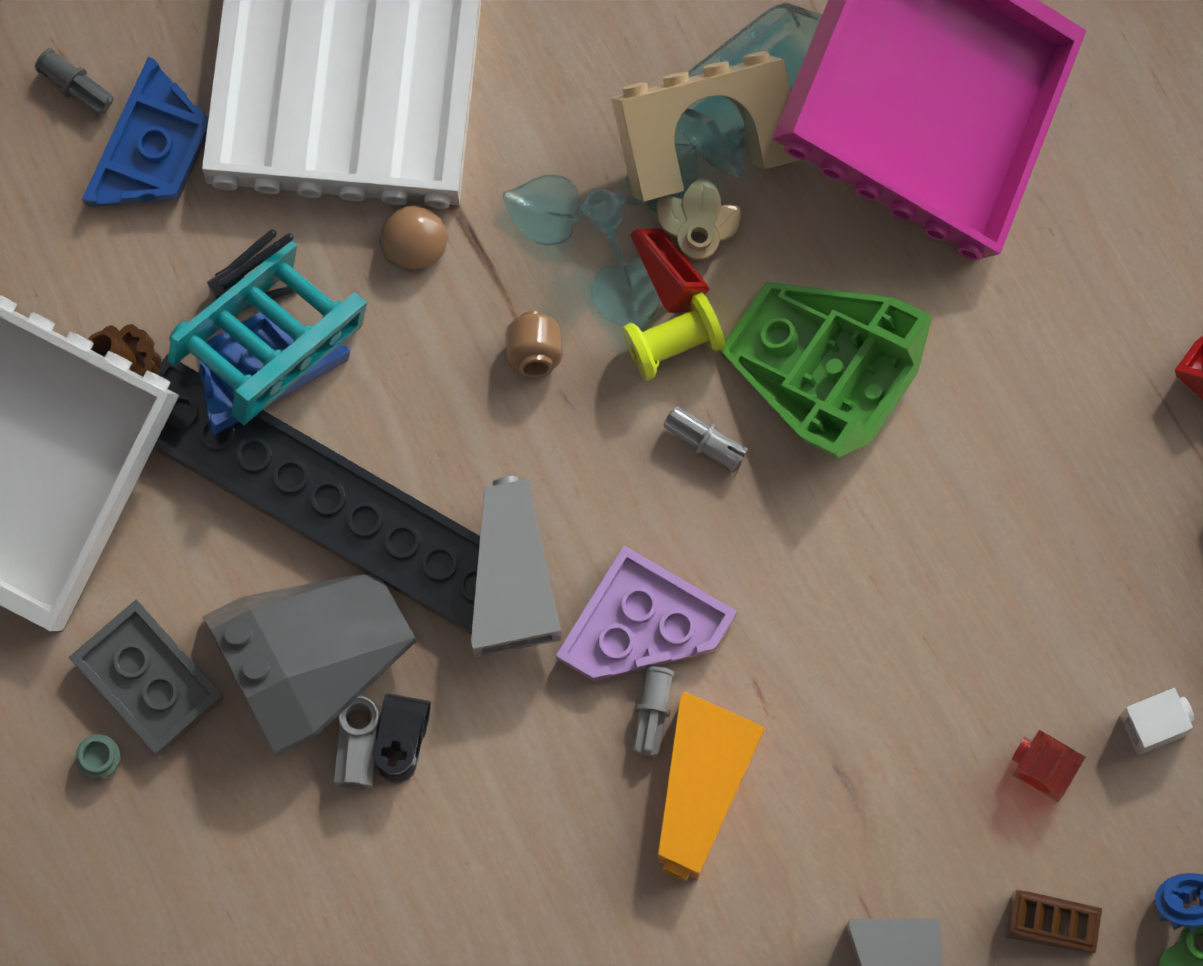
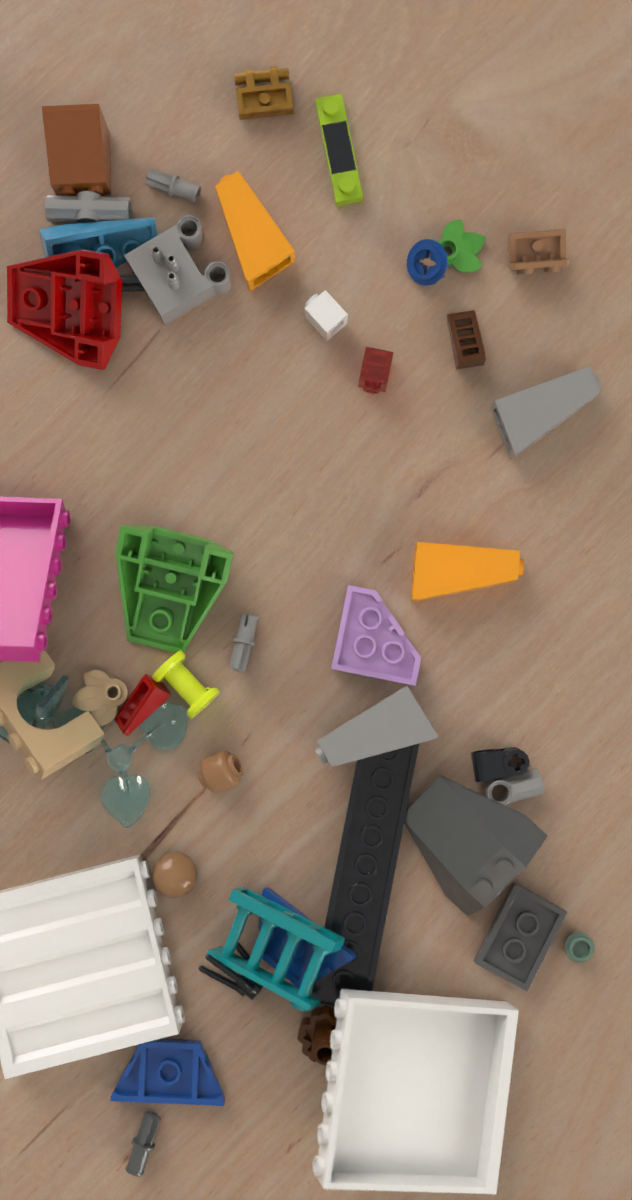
camera: 105 degrees left, 10 degrees up
(652, 710) = (426, 615): light grey axle -> none

